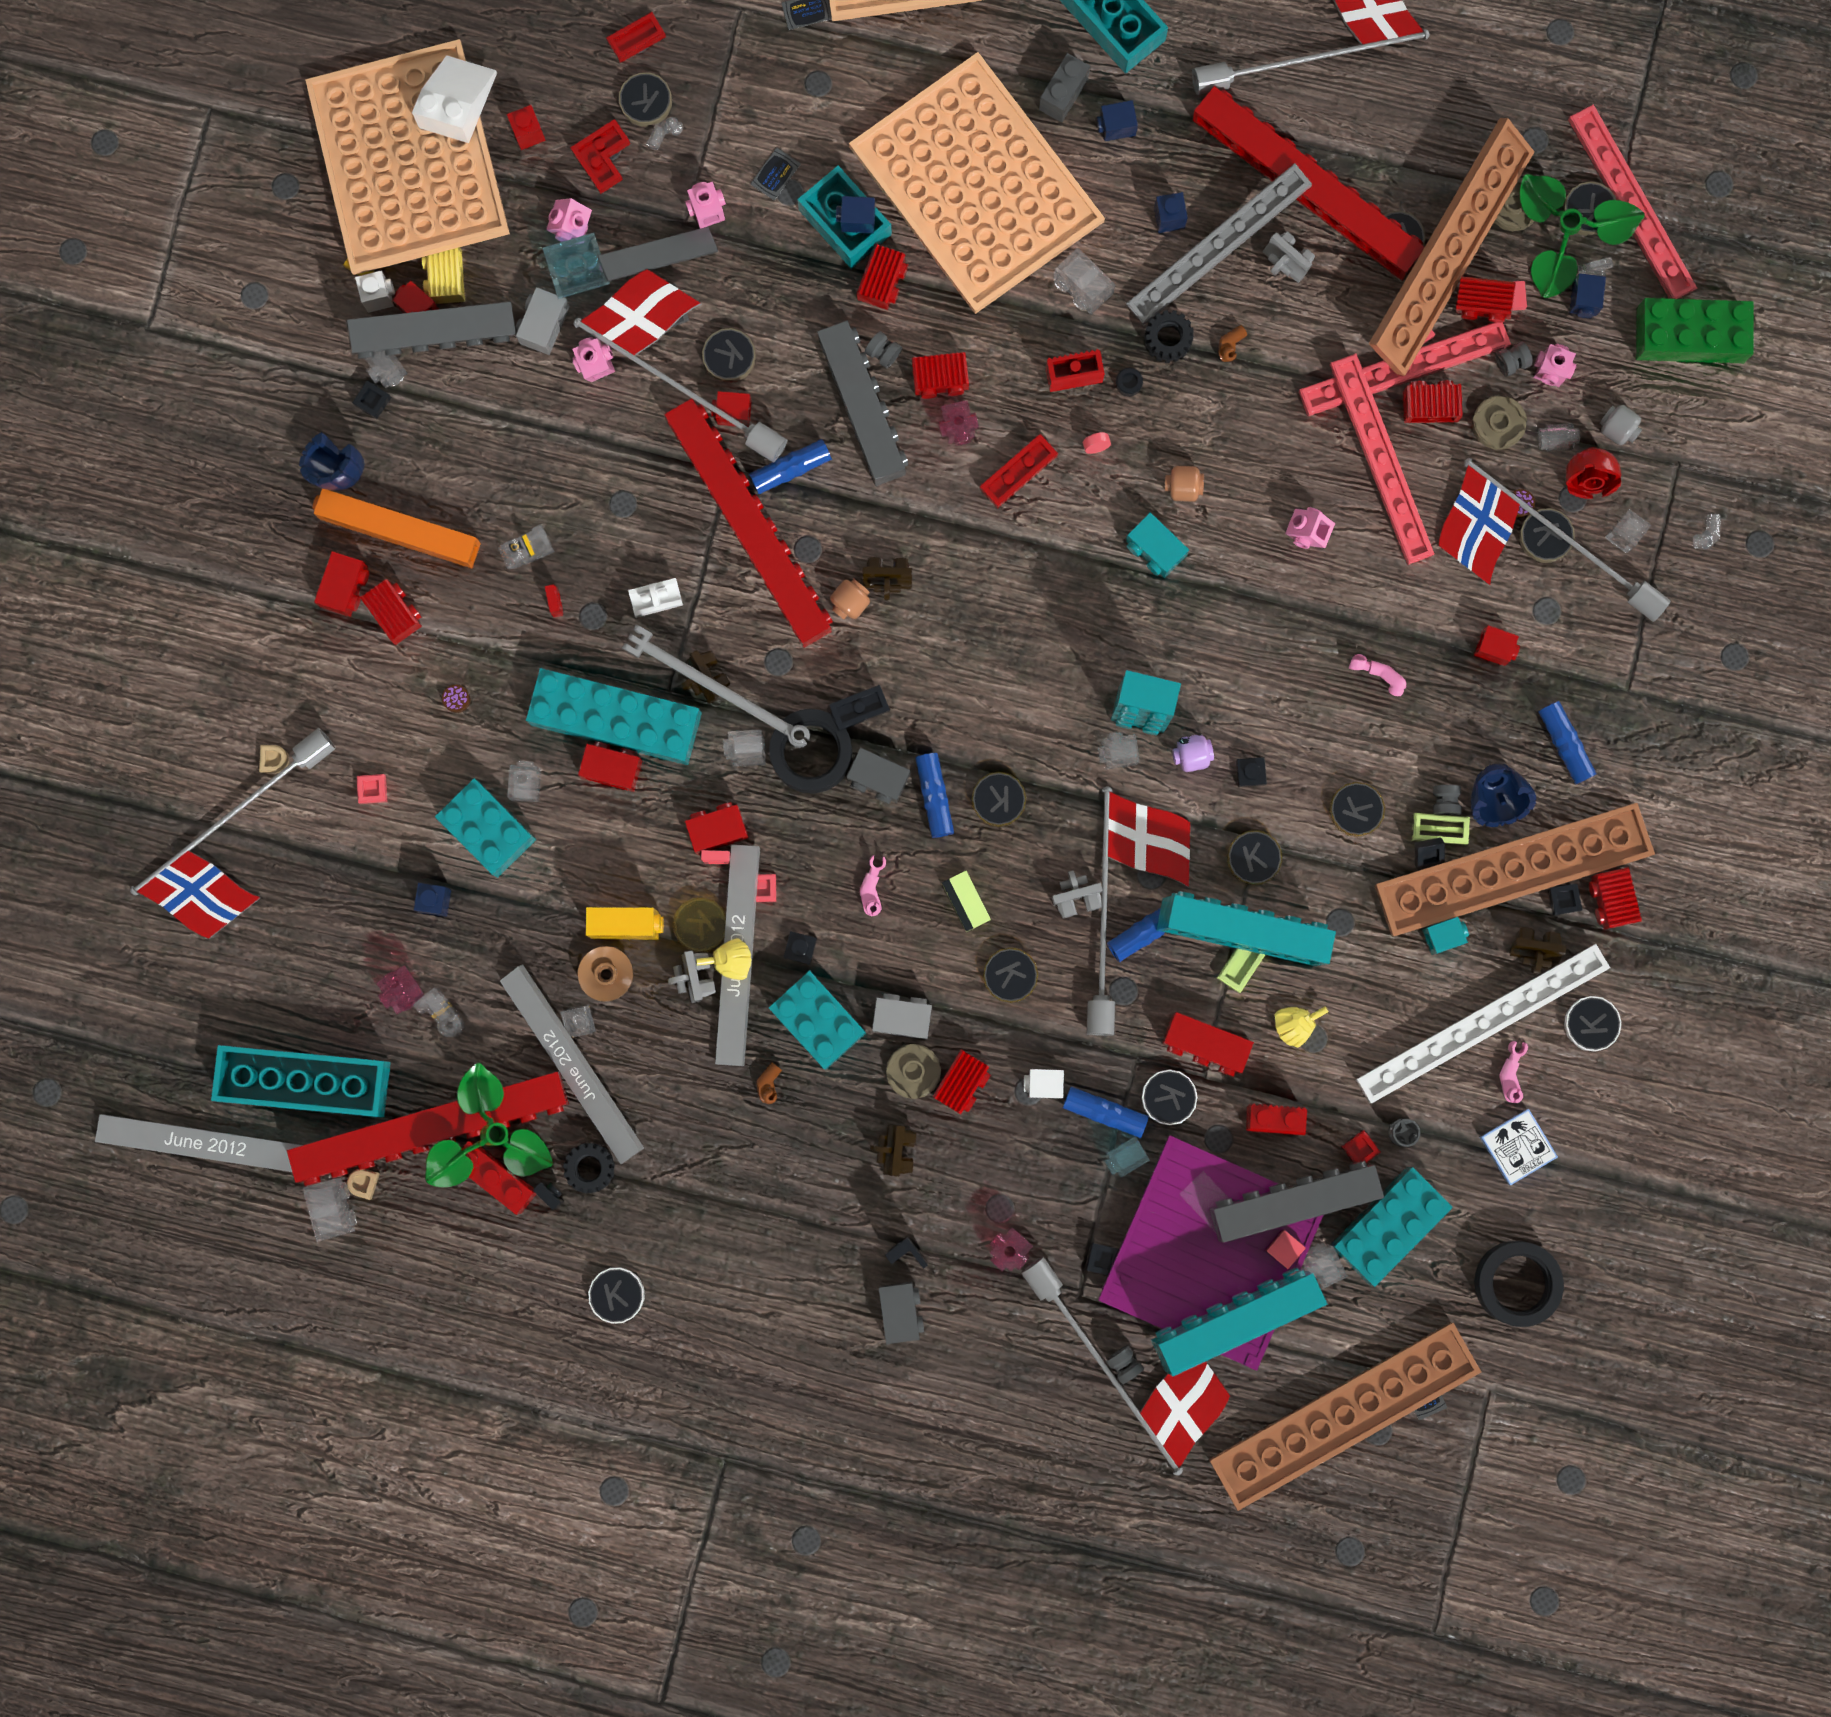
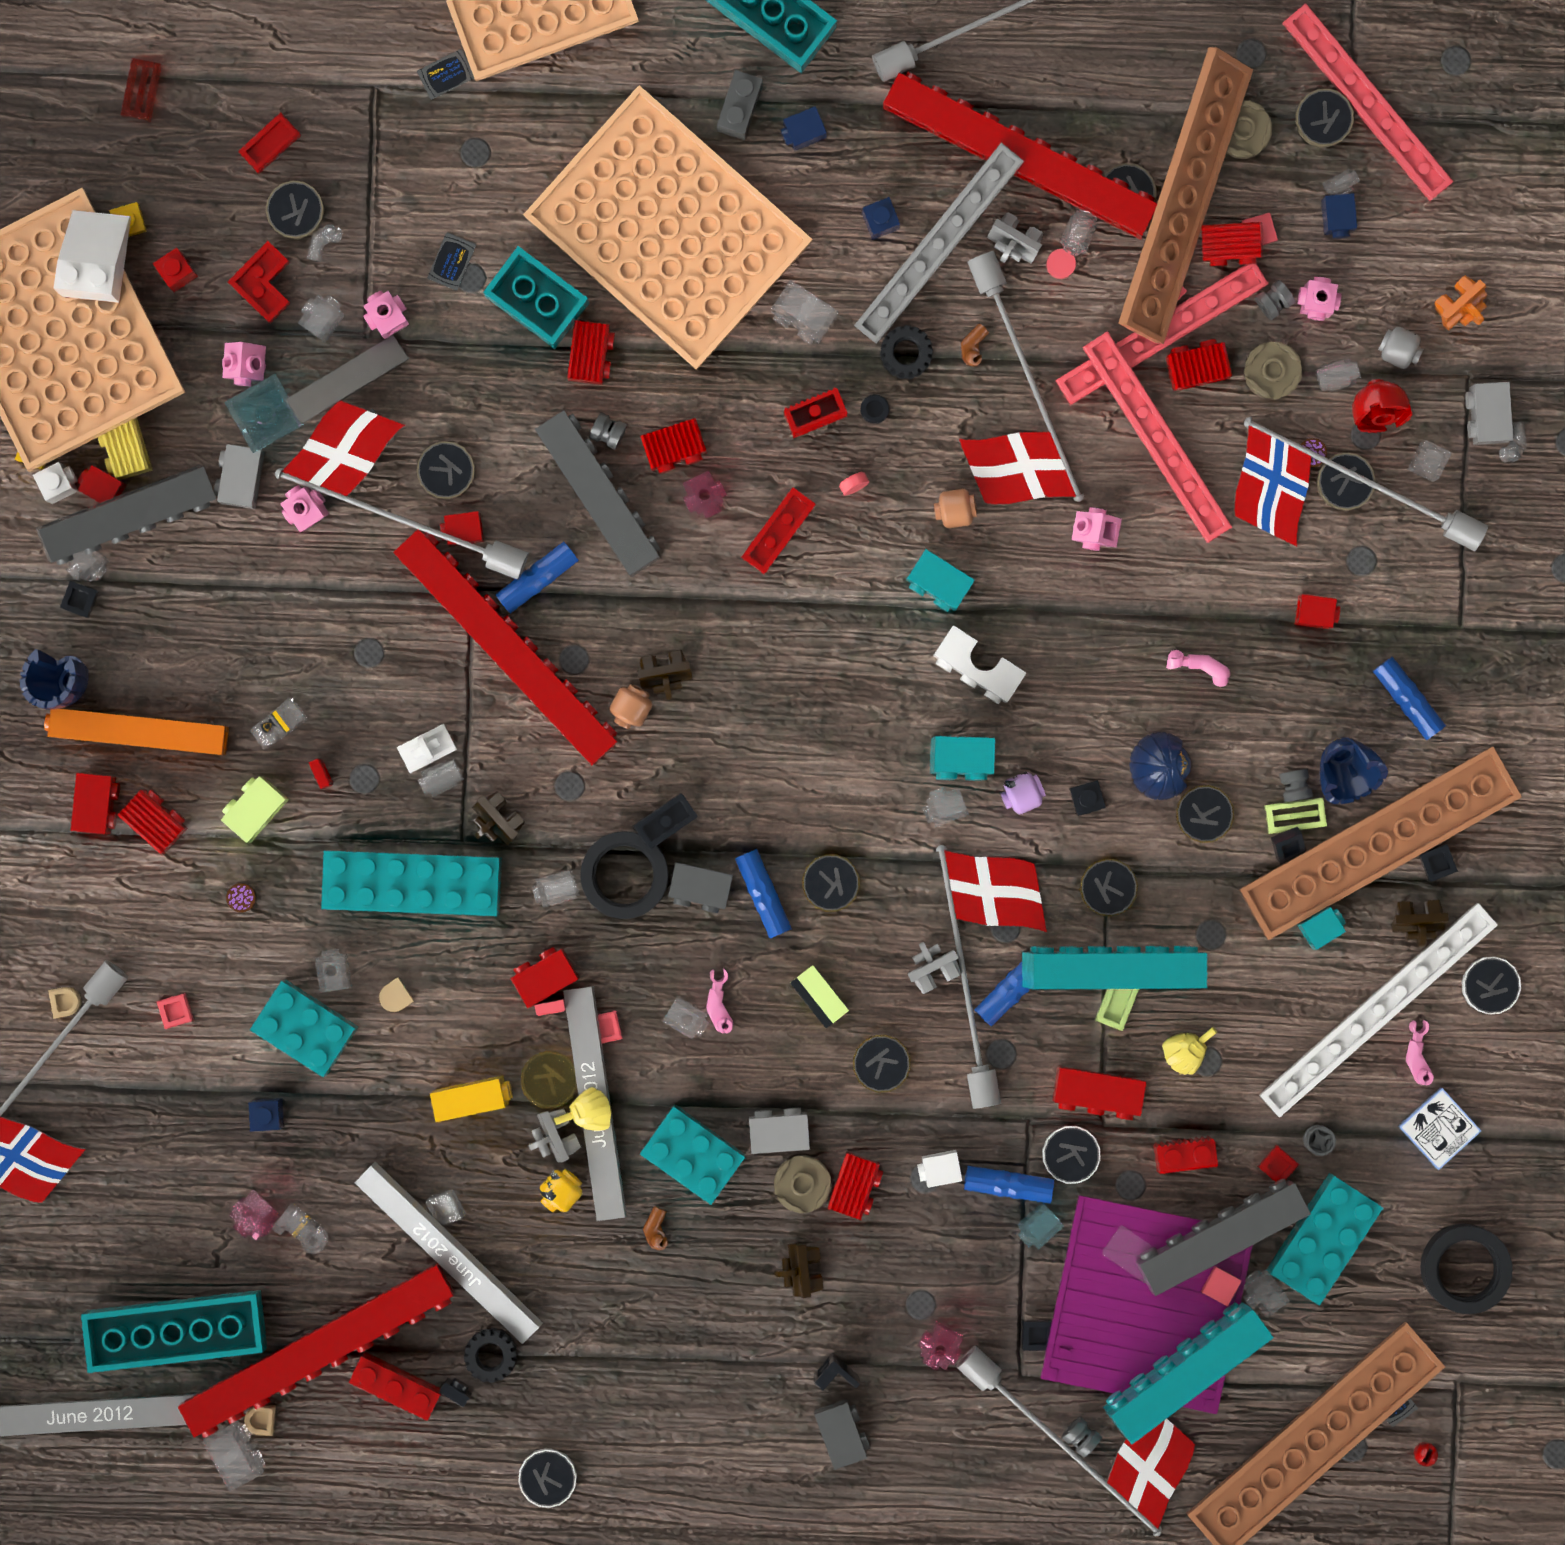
camera: 15 degrees left, 5 degrees up
(479, 1093) = (419, 1350): green plant -> none
(485, 619) = (254, 808): none -> yellowish green brick
(500, 82) = (133, 210): none -> yellow plate
(576, 818) = (395, 996): none -> tan tile
(591, 971) = (451, 1163): medium nougat dish -> none
(610, 766) = (419, 936): red brick -> none
(644, 645) = (426, 804): light grey hinge -> none
(647, 196) = (321, 316): none -> clear brick
(663, 627) = (440, 778): none -> clear brick
(688, 1028) = (560, 1190): none -> yellow head
(800, 948) = (658, 1081): black plate -> none
(839, 894) = (686, 1018): none -> clear brick
(856, 214) = (549, 298): dark blue brick -> none
(1190, 647) = (956, 654): none -> white arch
(1253, 457) = (1021, 463): none -> flag
(1324, 757) = (1160, 766): none -> dark blue hair
(1325, 288) = (1060, 264): none -> coral tile
(1347, 262) = (1079, 232): none -> clear brick
(1442, 1448) = (1421, 1451): none -> red hinge
(1544, 195) = (1270, 120): green plant -> none
(1615, 898) = (1489, 851): red brick -> none
(1688, 400) = (1465, 308): none -> orange hips
(1691, 500) = (1489, 413): none -> light grey brick
(1694, 330) = (1459, 229): green brick -> none

